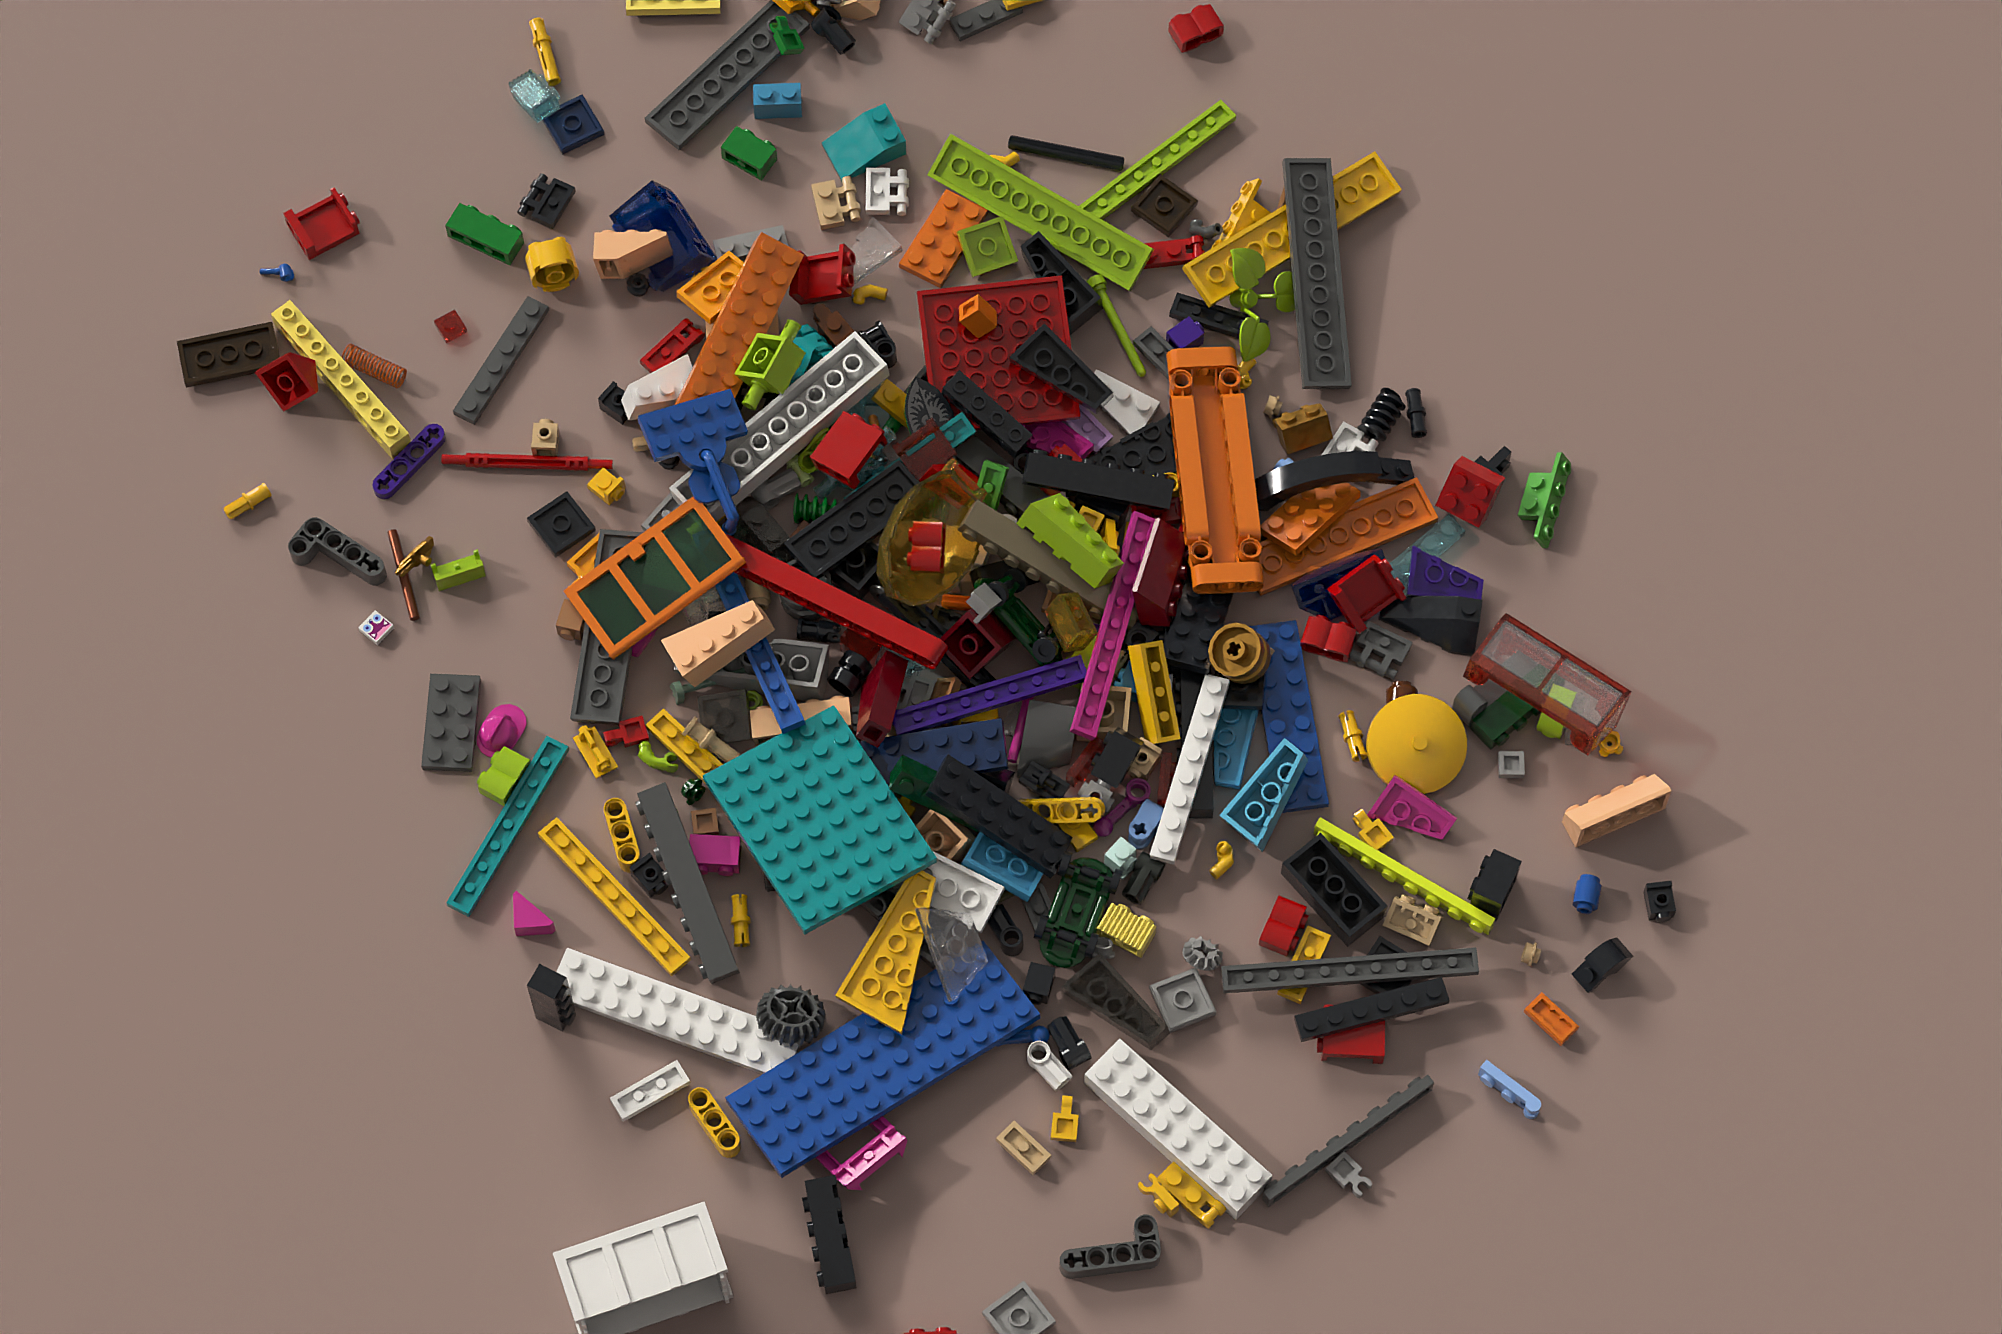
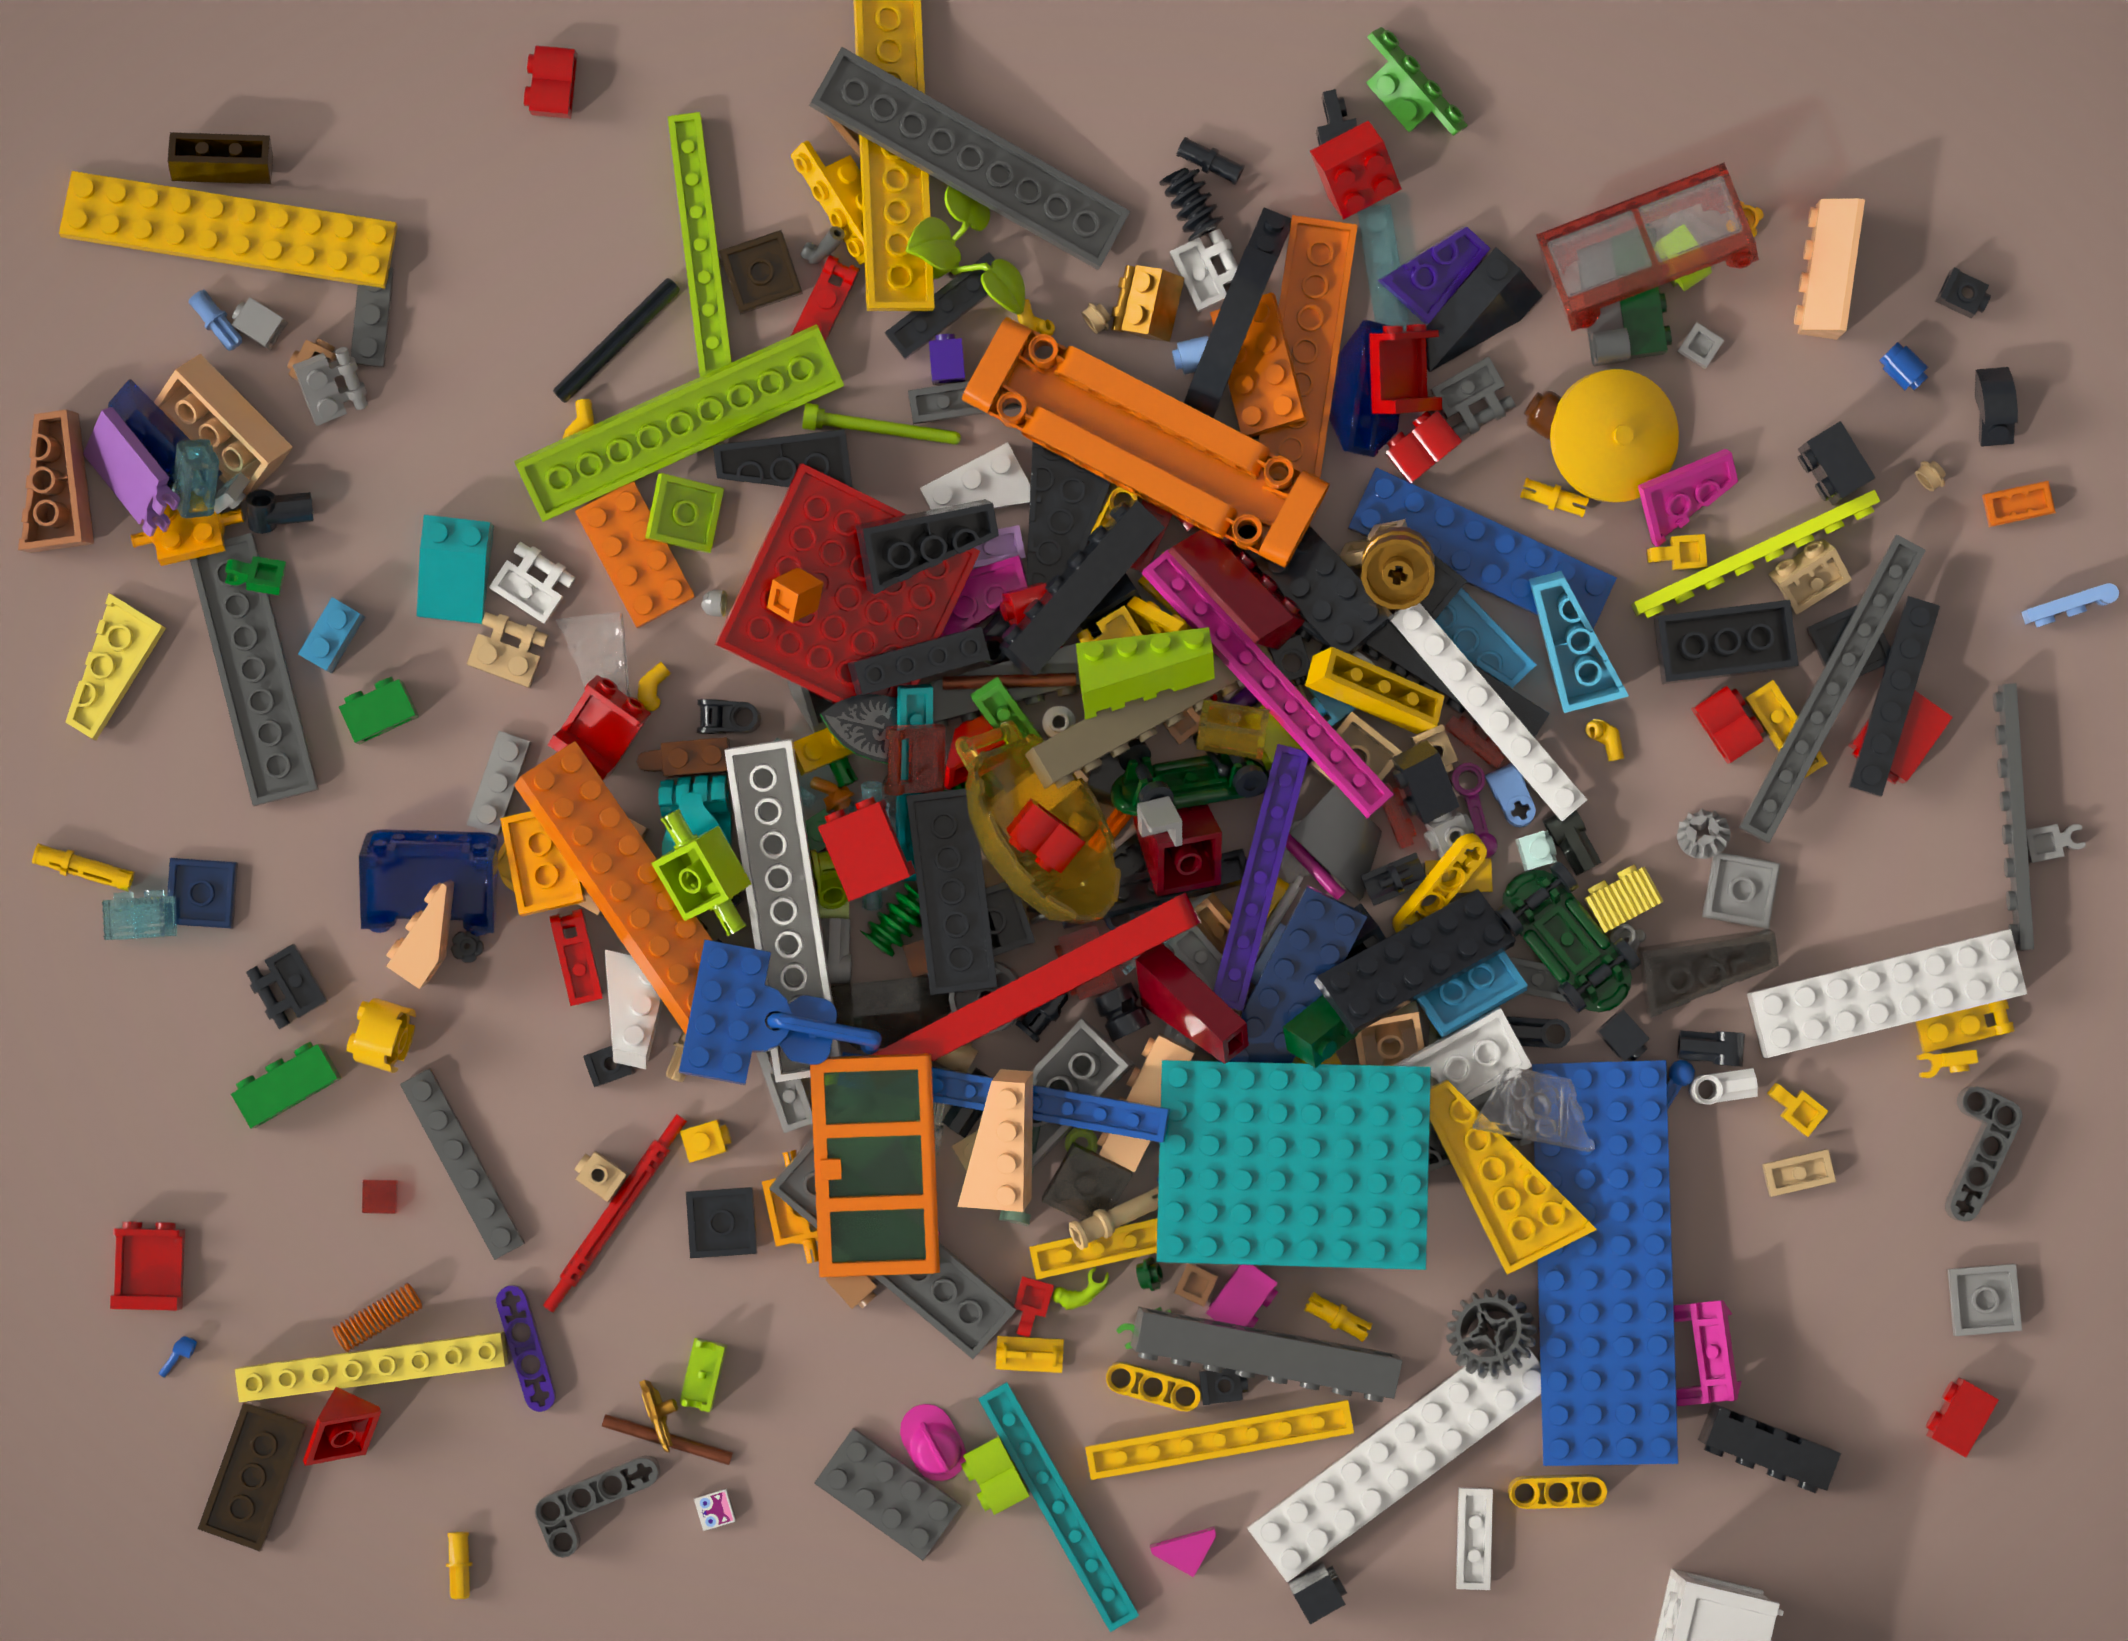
camera: 55 degrees left, 20 degrees up
(1010, 480) = (1010, 680): none -> copper bar

